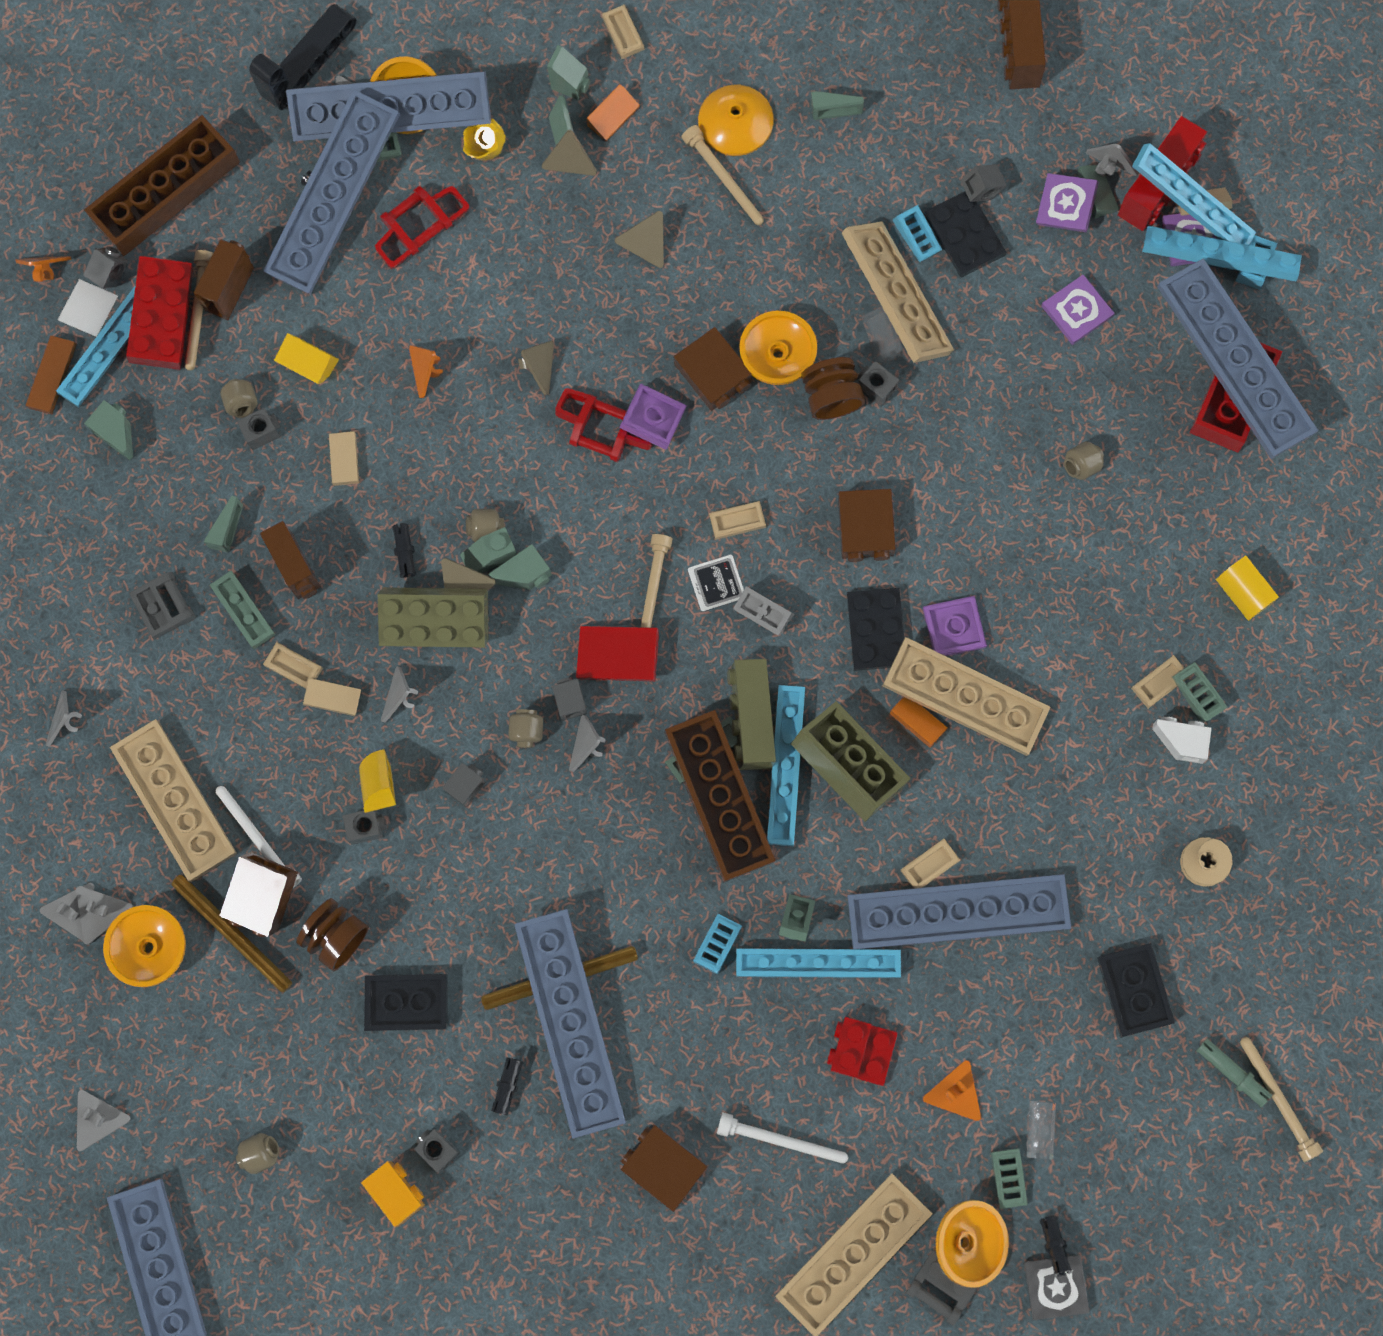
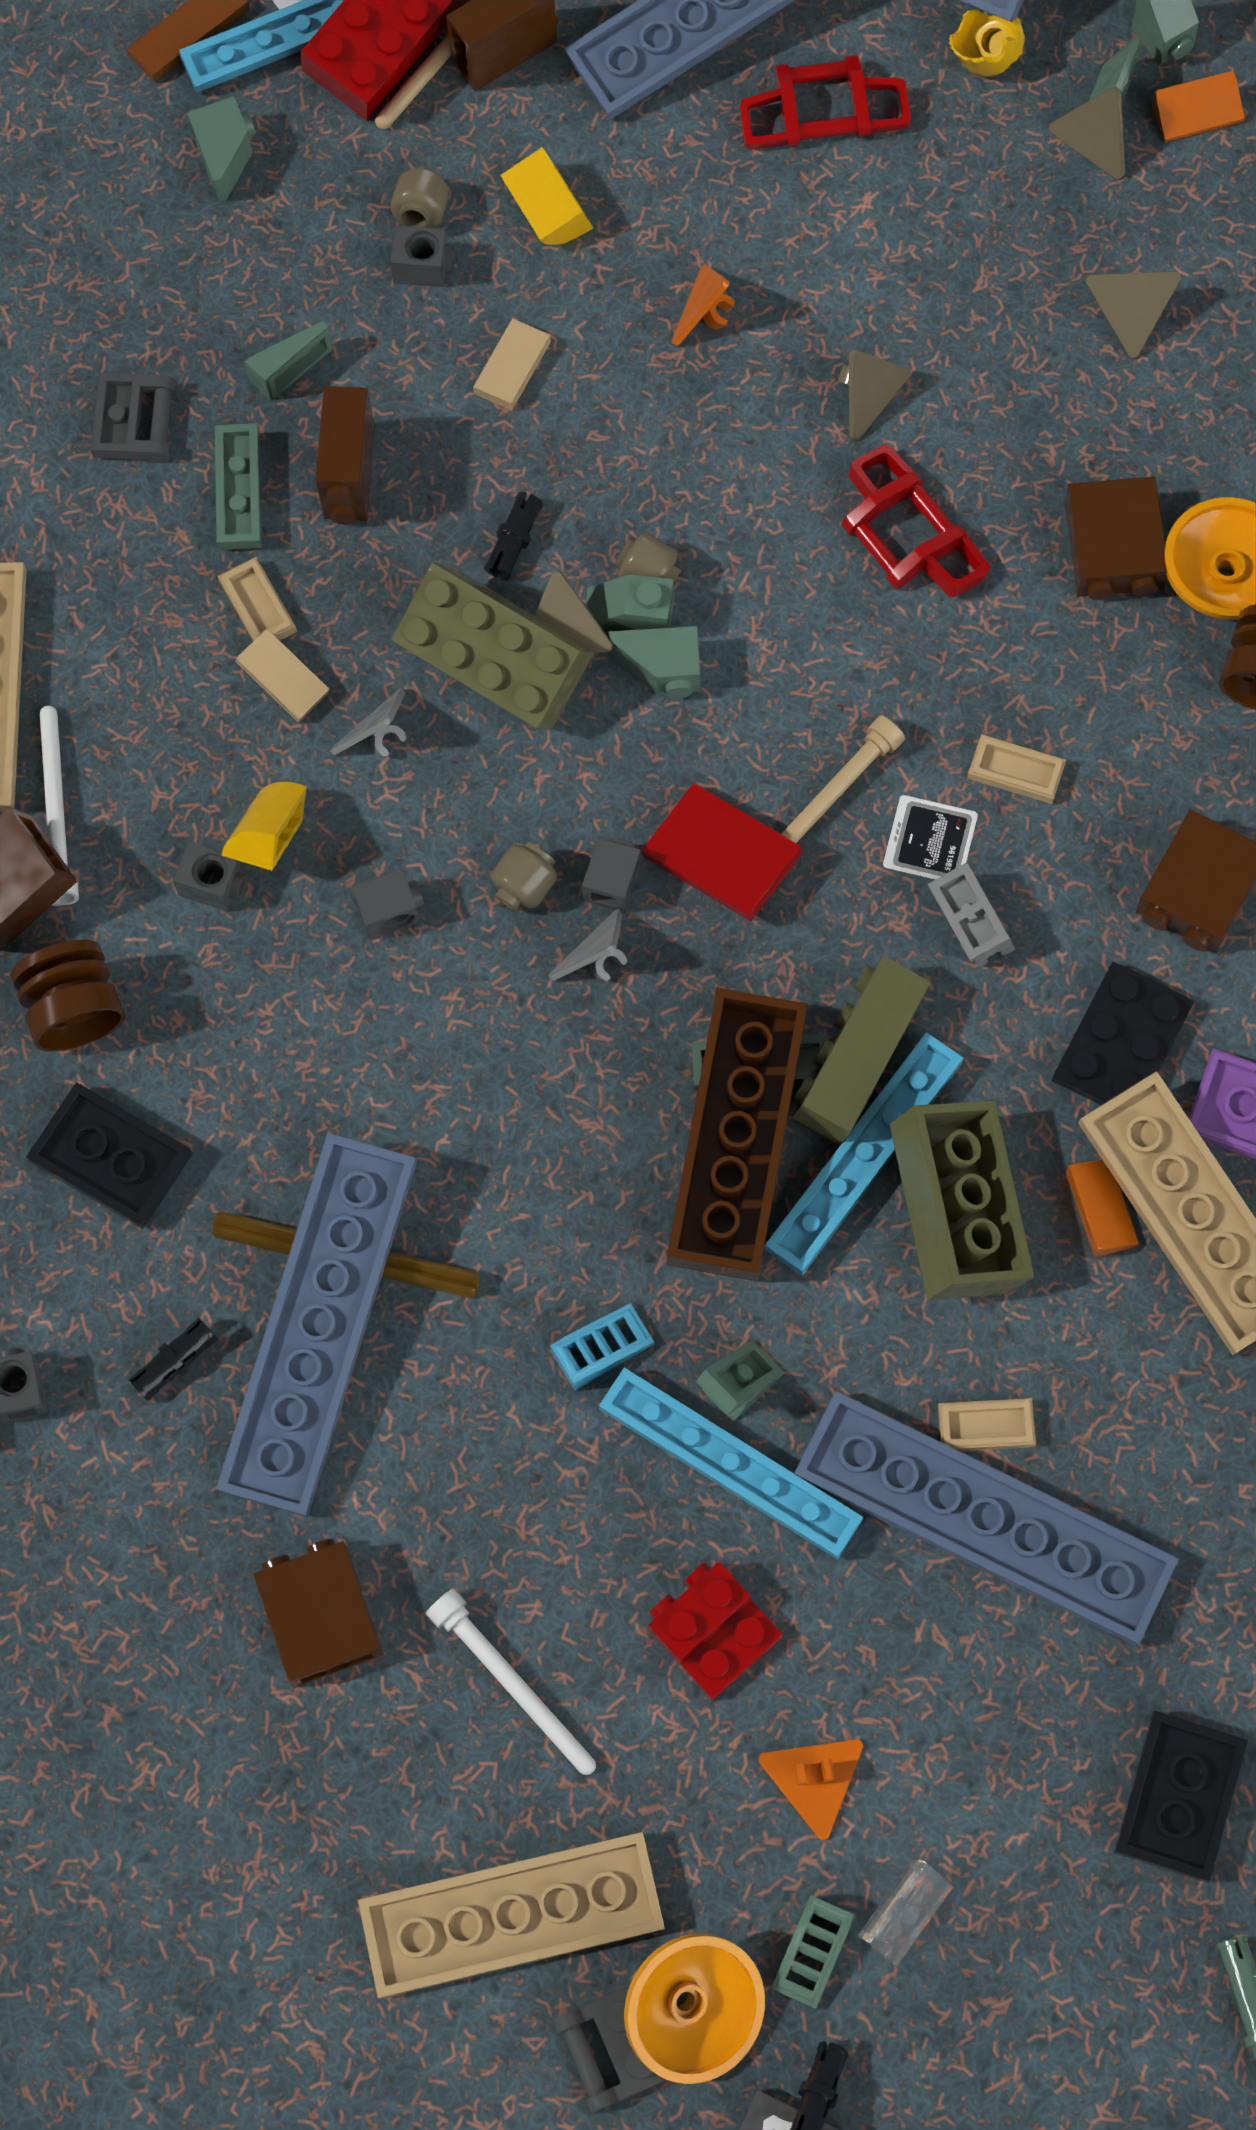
camera: 30 degrees right, 5 degrees down
(653, 416) = (986, 552): medium lavender tile -> none

